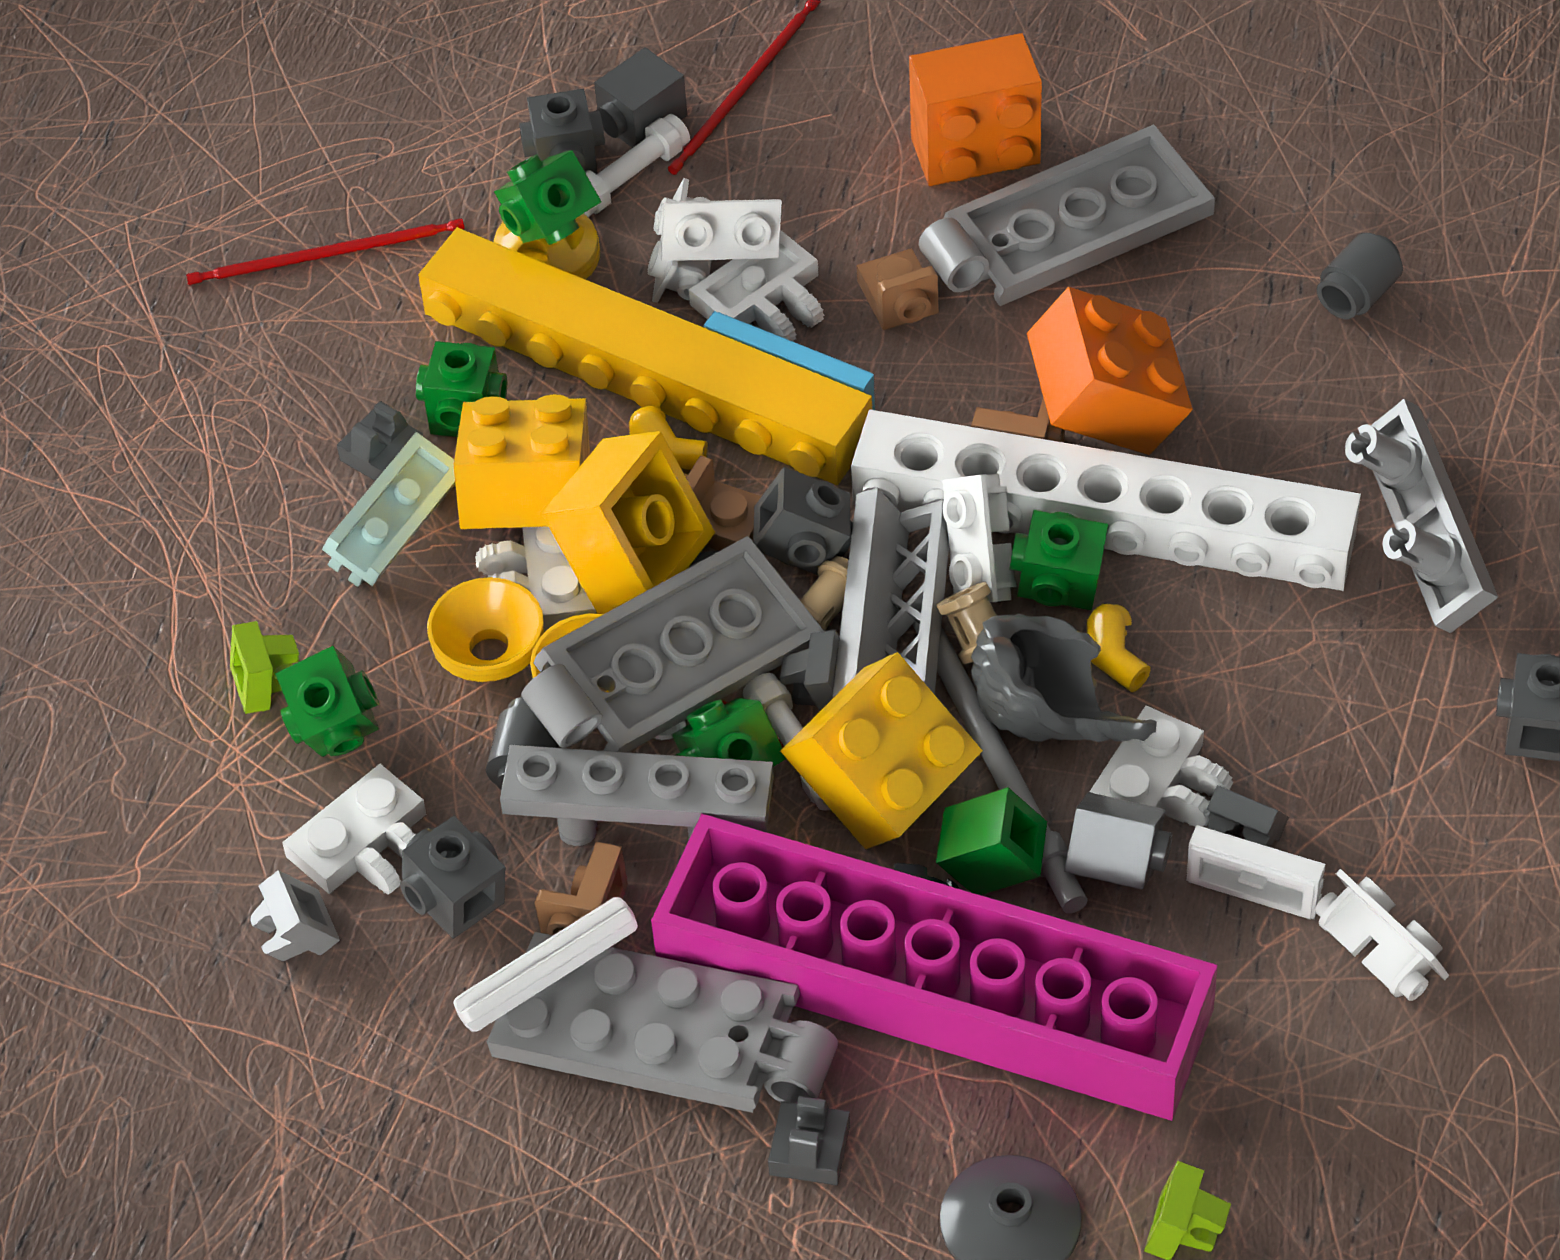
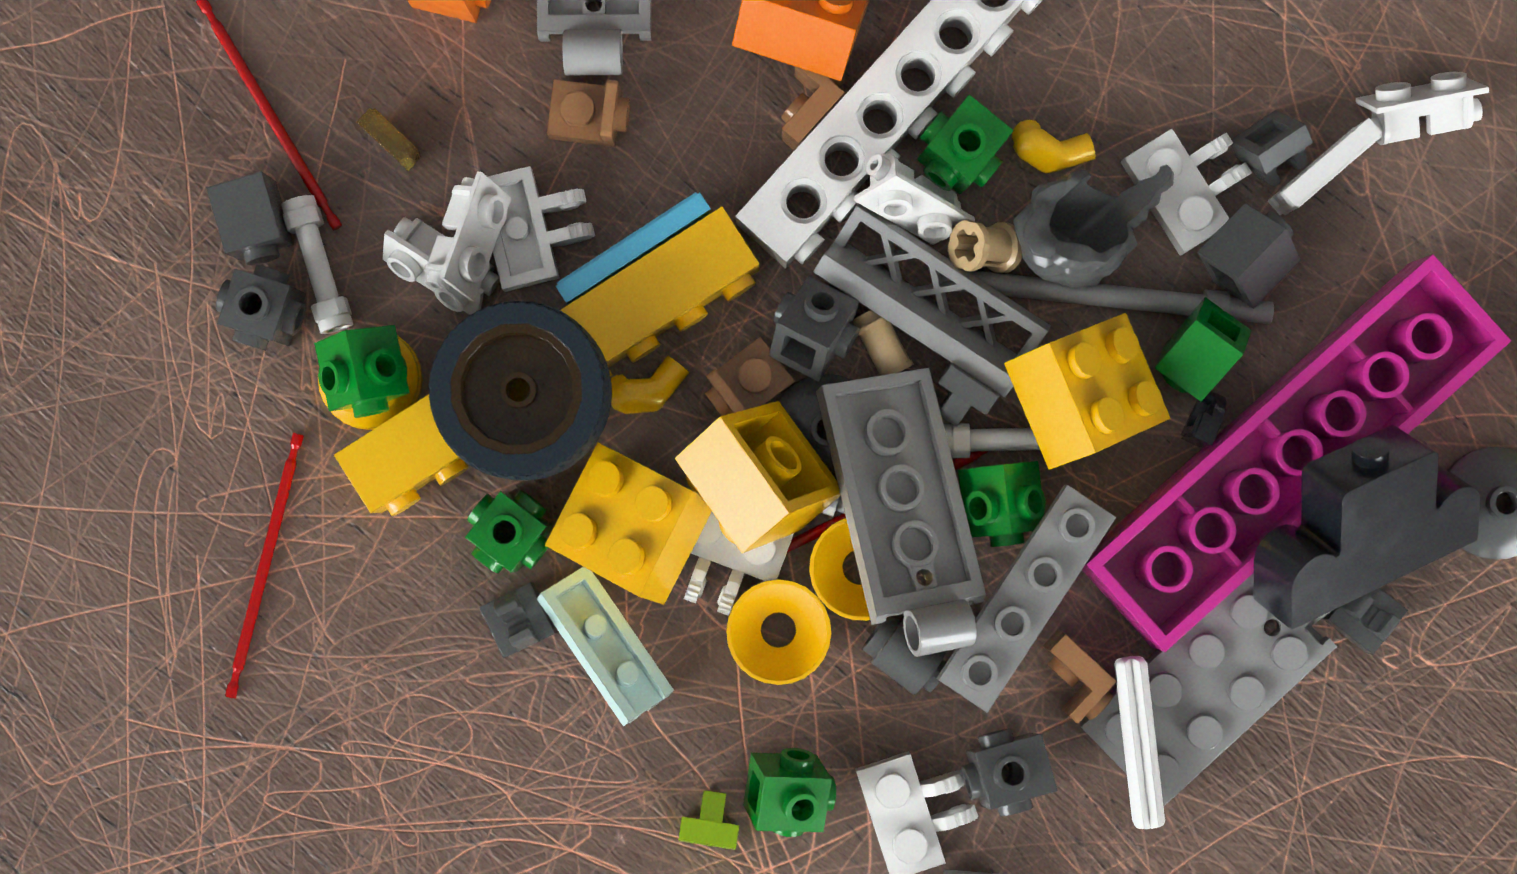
camera: 65 degrees left, 35 degrees up
(595, 302) = (565, 401): none -> wheel
(775, 158) = (389, 138): none -> clear yellow tile
(895, 1031) = (1364, 523): none -> black brick

